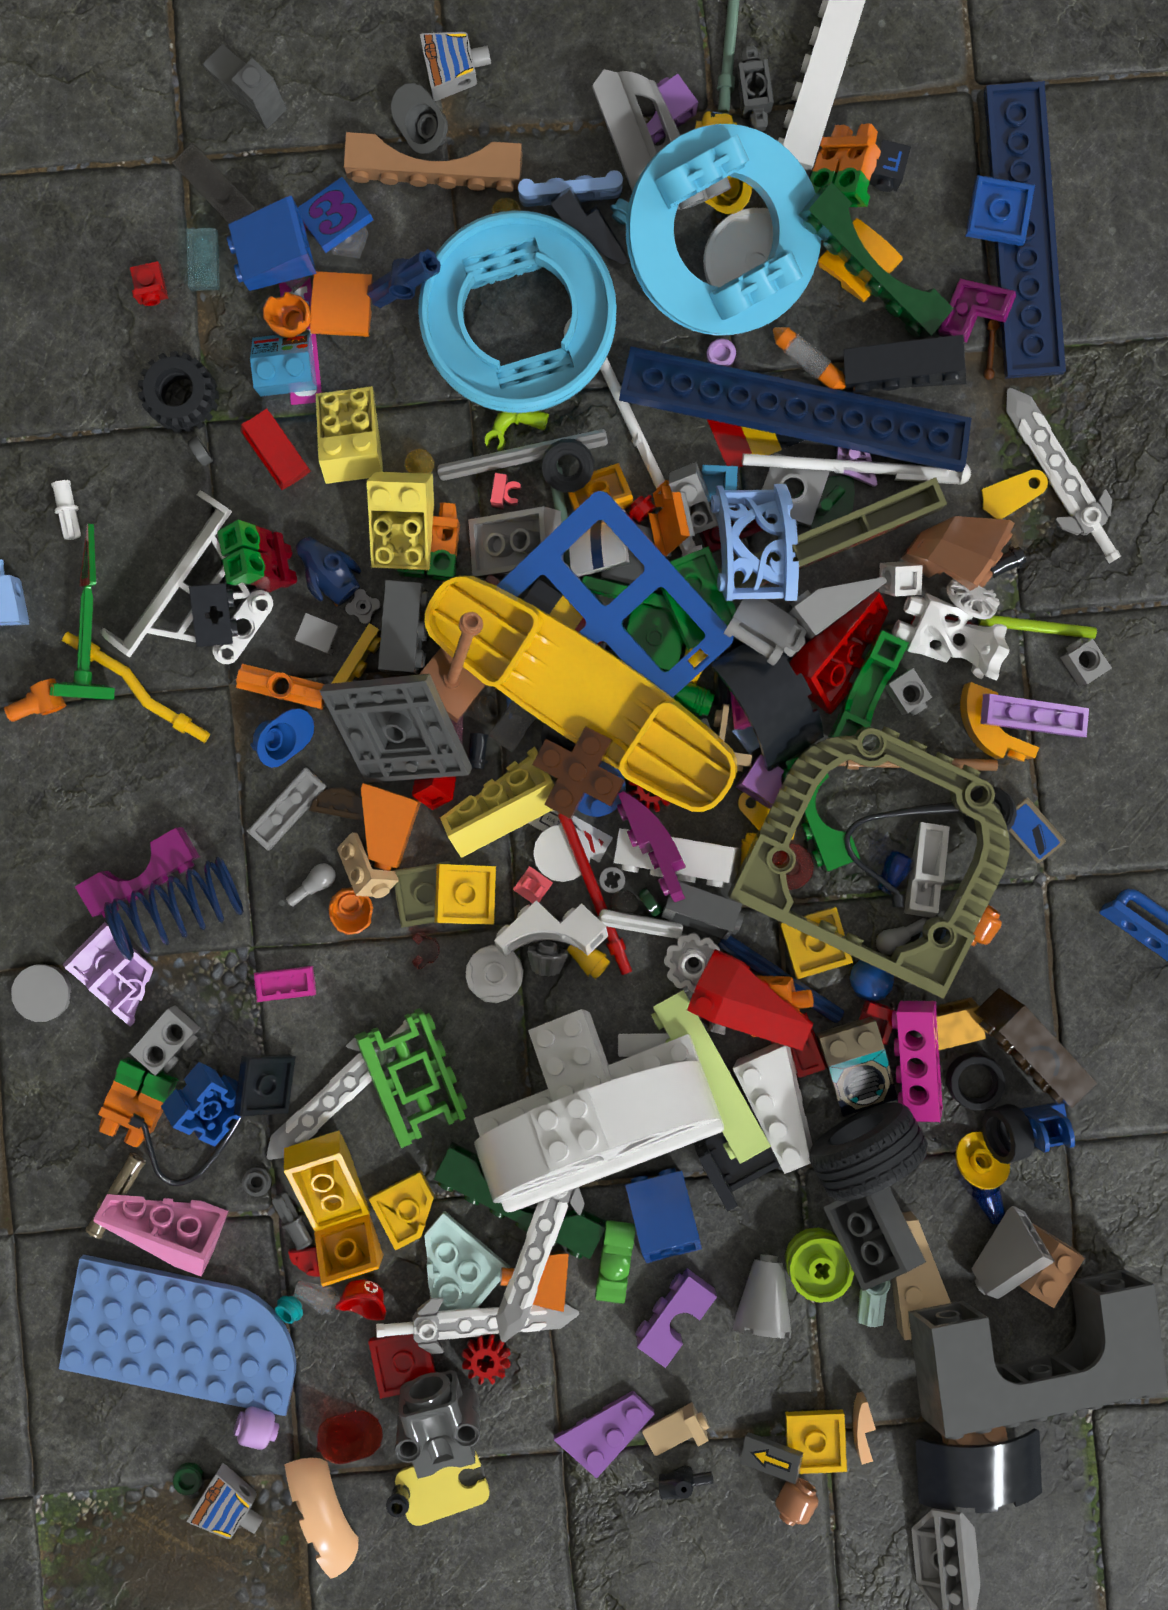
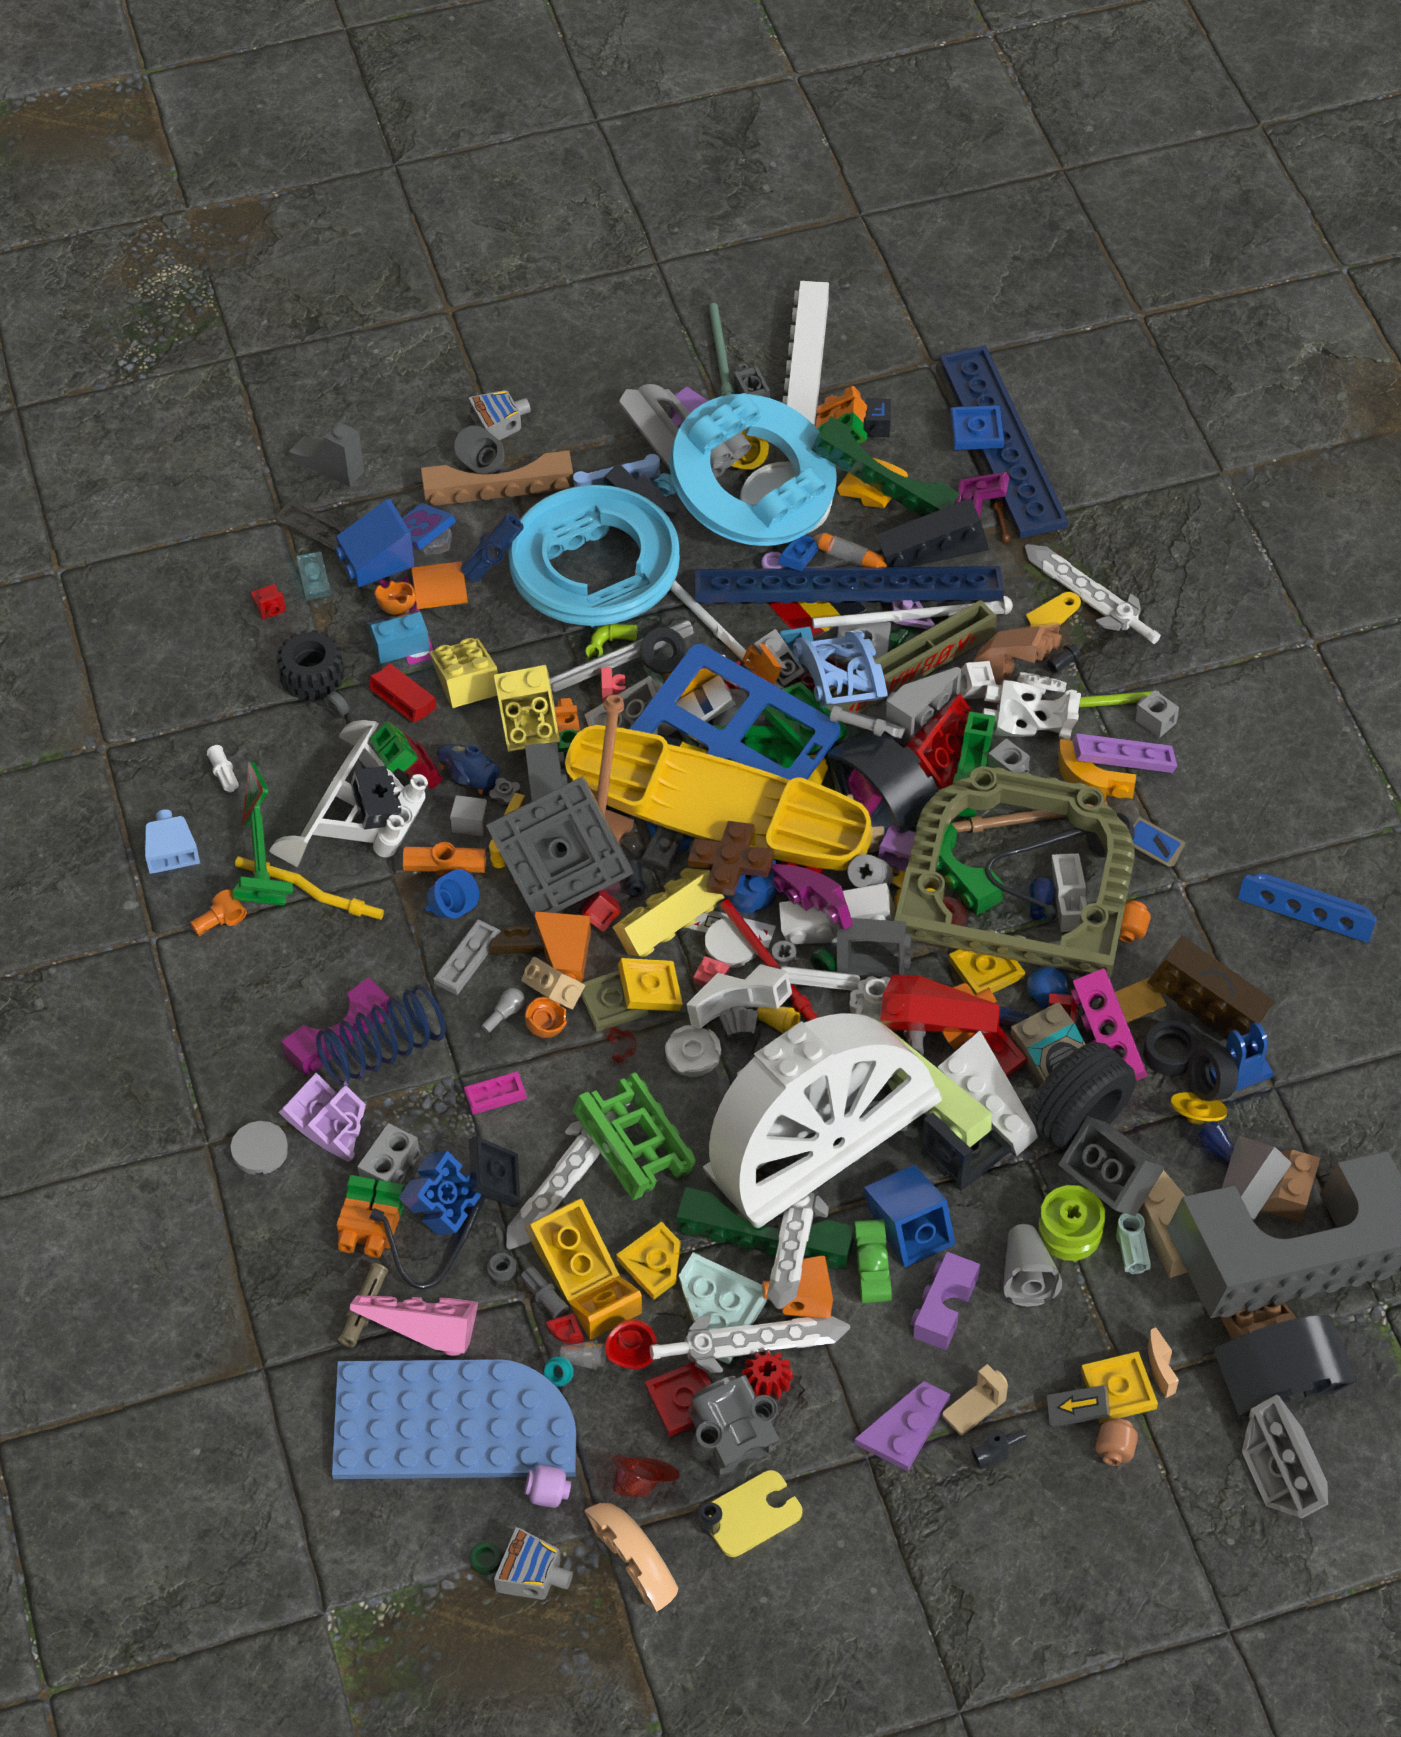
camera: 10 degrees left, 35 degrees down
(723, 820) = (861, 867): none -> light grey piece
(751, 350) = (799, 553): none -> blue plate

